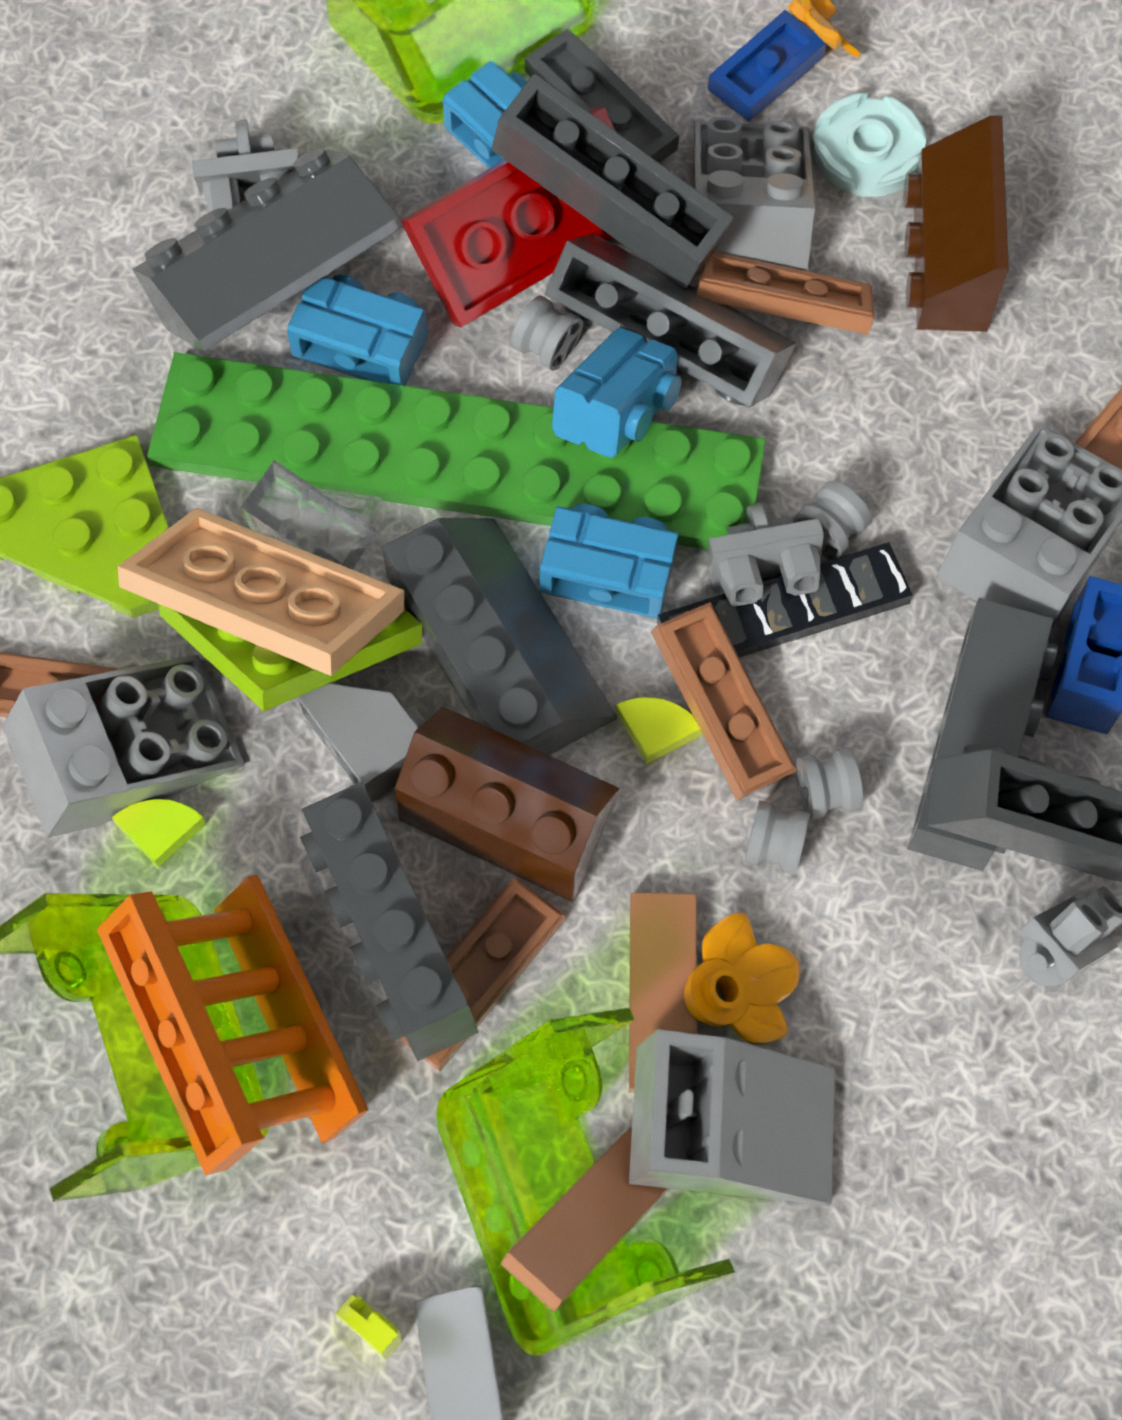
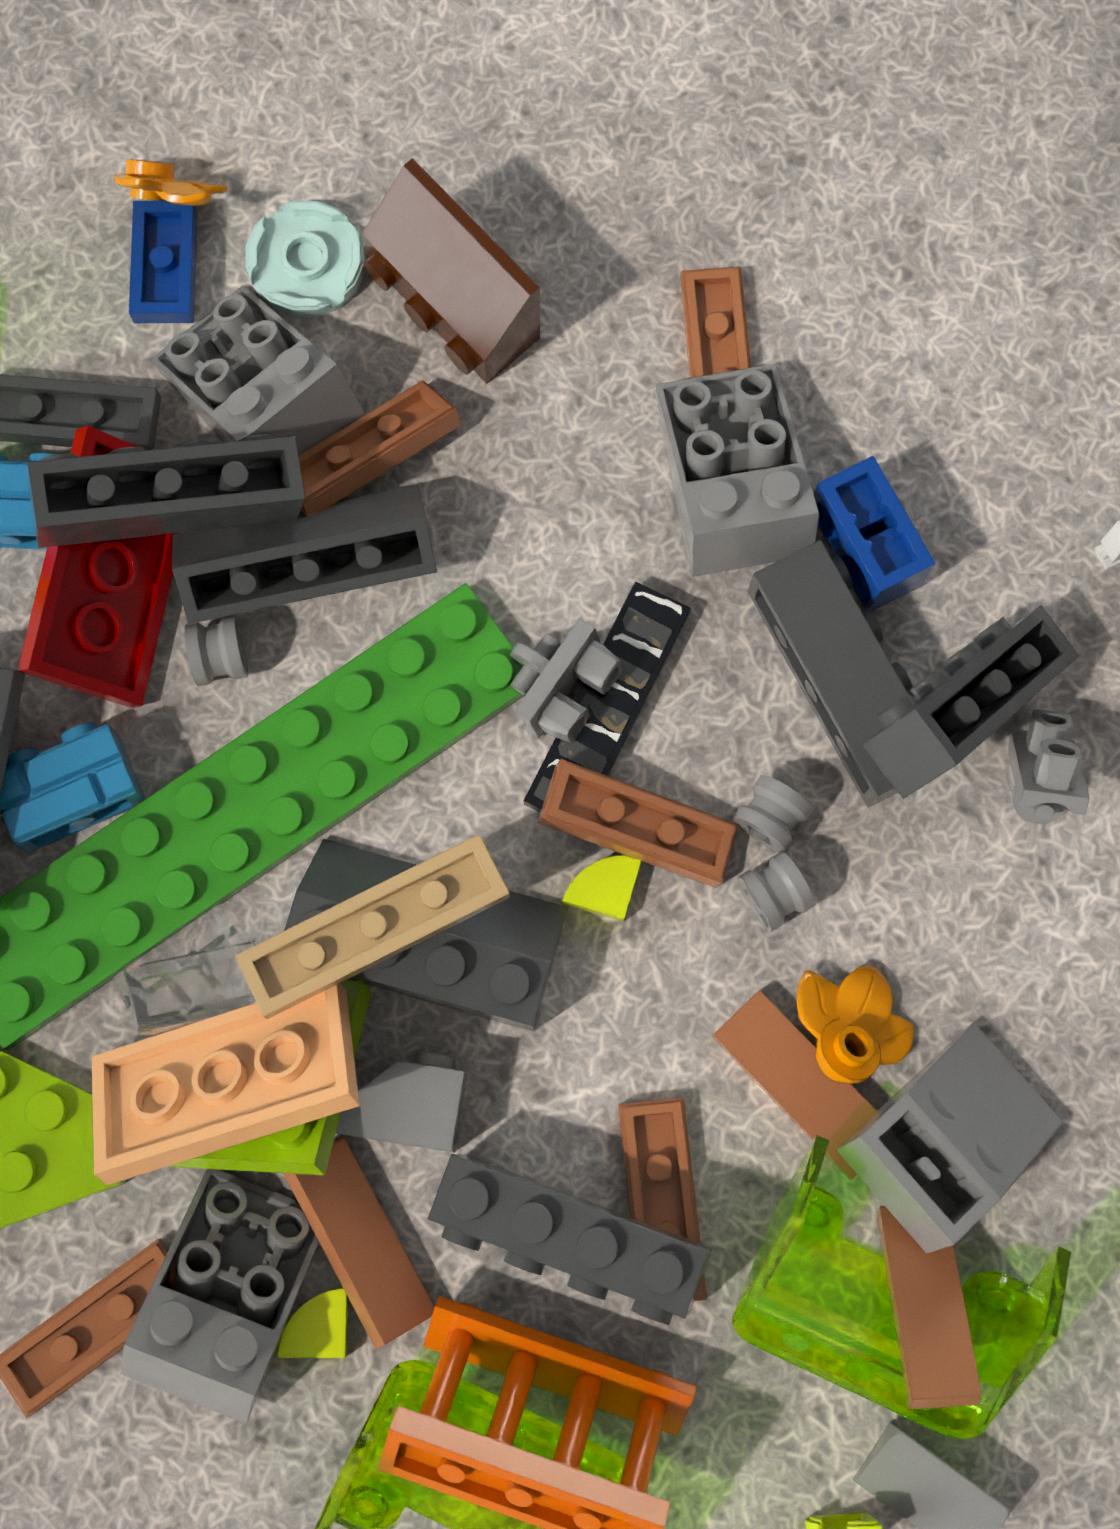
camera: 45 degrees left, 10 degrees up
(243, 795) = (362, 1247): none -> nougat tile
(462, 576) = (372, 926): none -> tan plate
(503, 801) = (568, 1058): reddish brown slope -> none
(608, 560) = (448, 791): dark azure brick -> none
(616, 393) = (327, 656): dark azure brick -> none
(840, 516) = (579, 596): light grey wheel -> none

